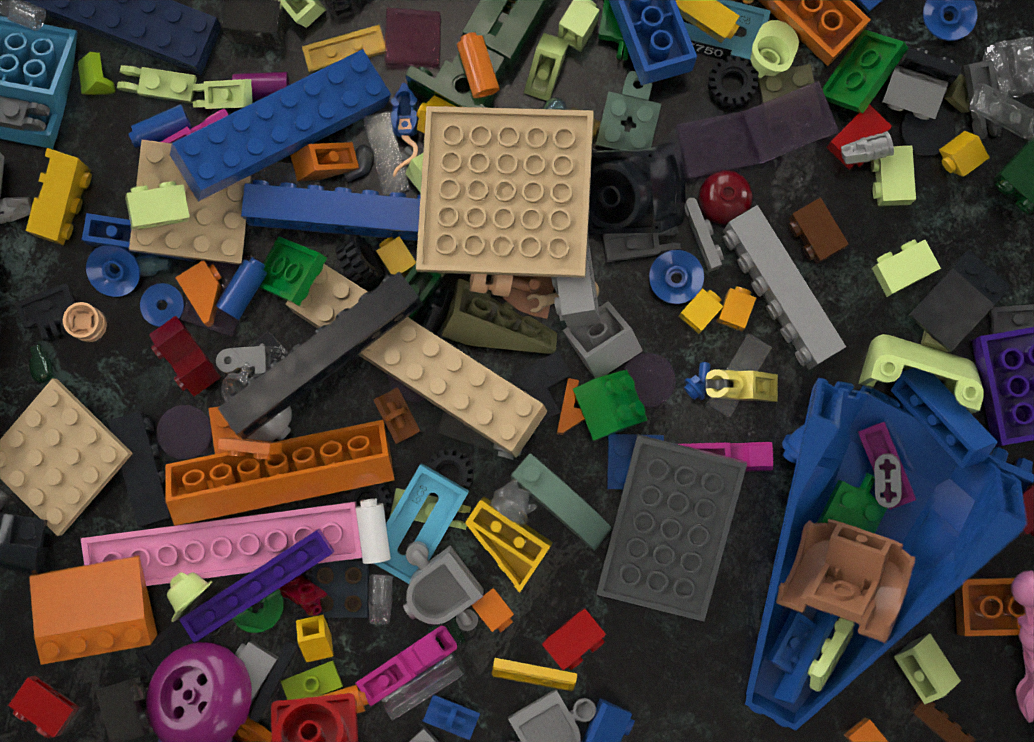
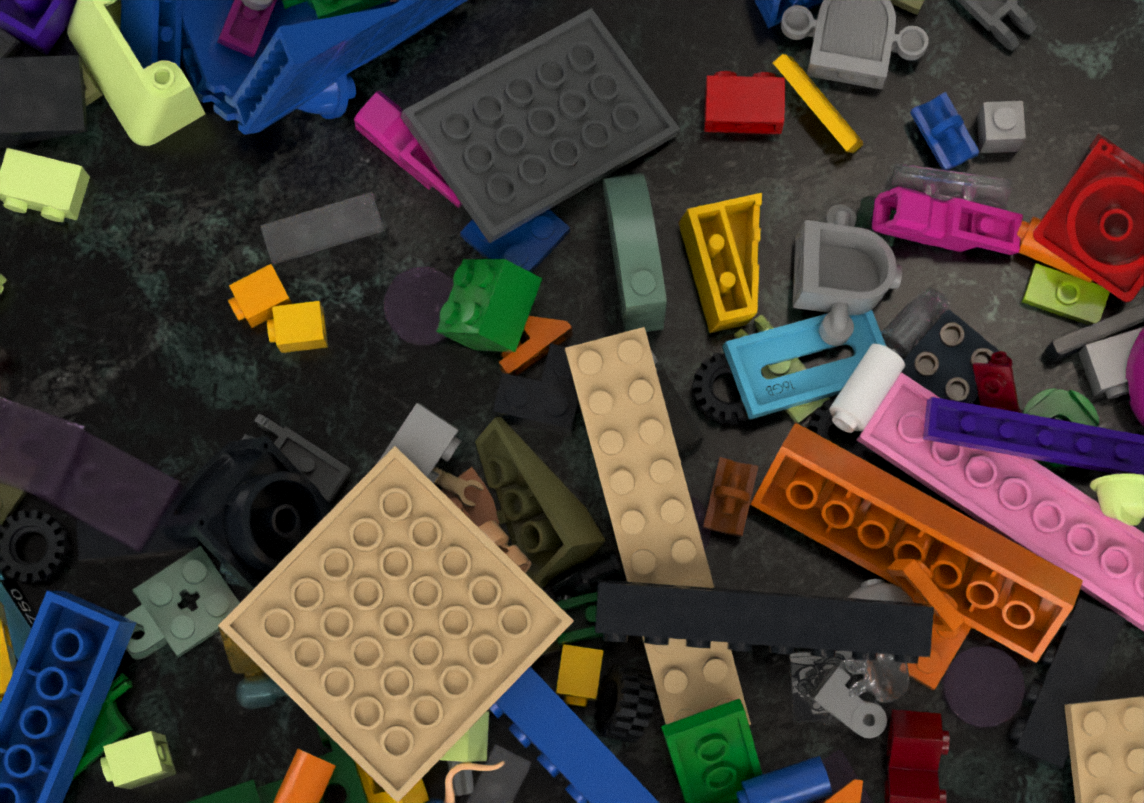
camera: 135 degrees left, 5 degrees down
(314, 638) = (1025, 334): yellow brick -> none
(494, 611) = (803, 201): orange brick -> none
(513, 503) = (688, 291): clear piece -> none
(546, 66) = (218, 747): yellowish green slope -> none
(604, 344) = (438, 378): light grey slope -> none
(678, 263) = (290, 365): blue dish -> none
(696, 385) = (379, 252): blue plate -> none
(702, 231) = (219, 411): light grey hinge -> none
(724, 197) = (160, 428): dark red cylinder -> none
(742, 385) = (331, 204): light yellow plate -> none
(782, 287) = (191, 270): light grey brick -> none
(817, 231) = (97, 303): reddish brown brick -> none

